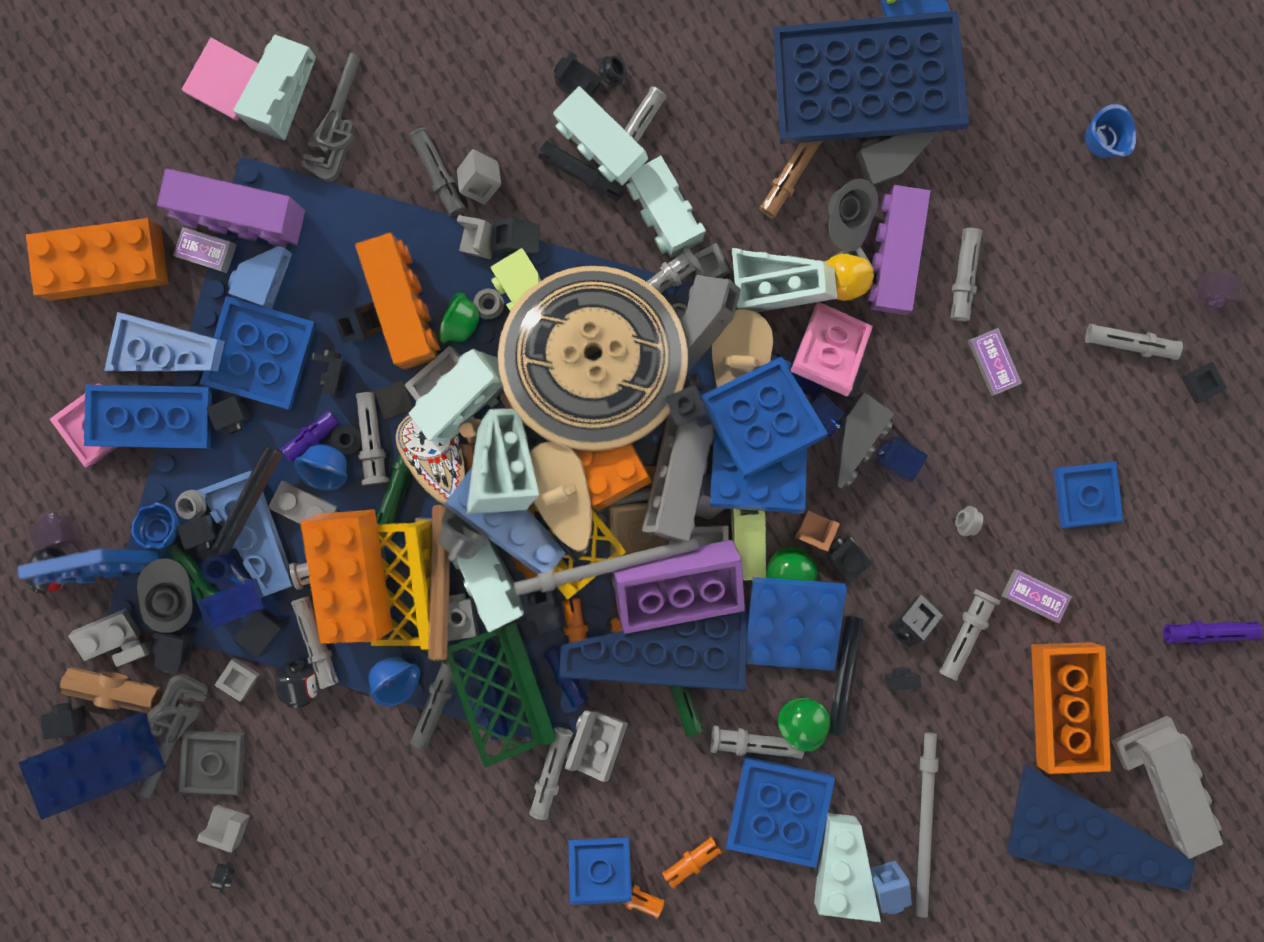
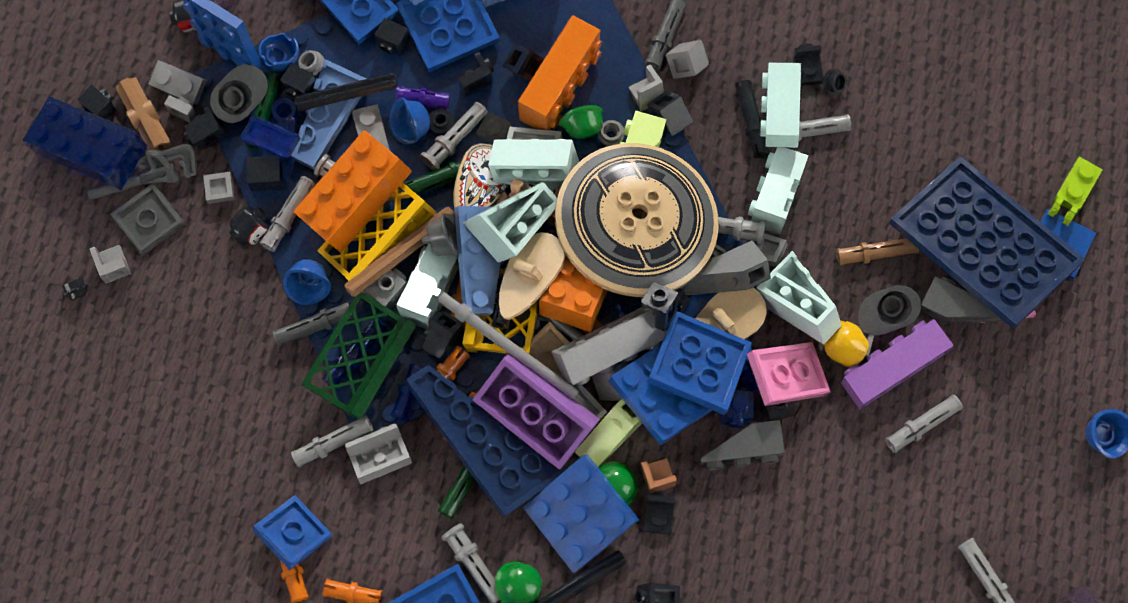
camera: 50 degrees right, 15 degrees down
(900, 458) = (759, 488): clear blue brick -> none
(969, 521) = (760, 574): light grey plate -> none
(994, 362) = (885, 496): tile -> none

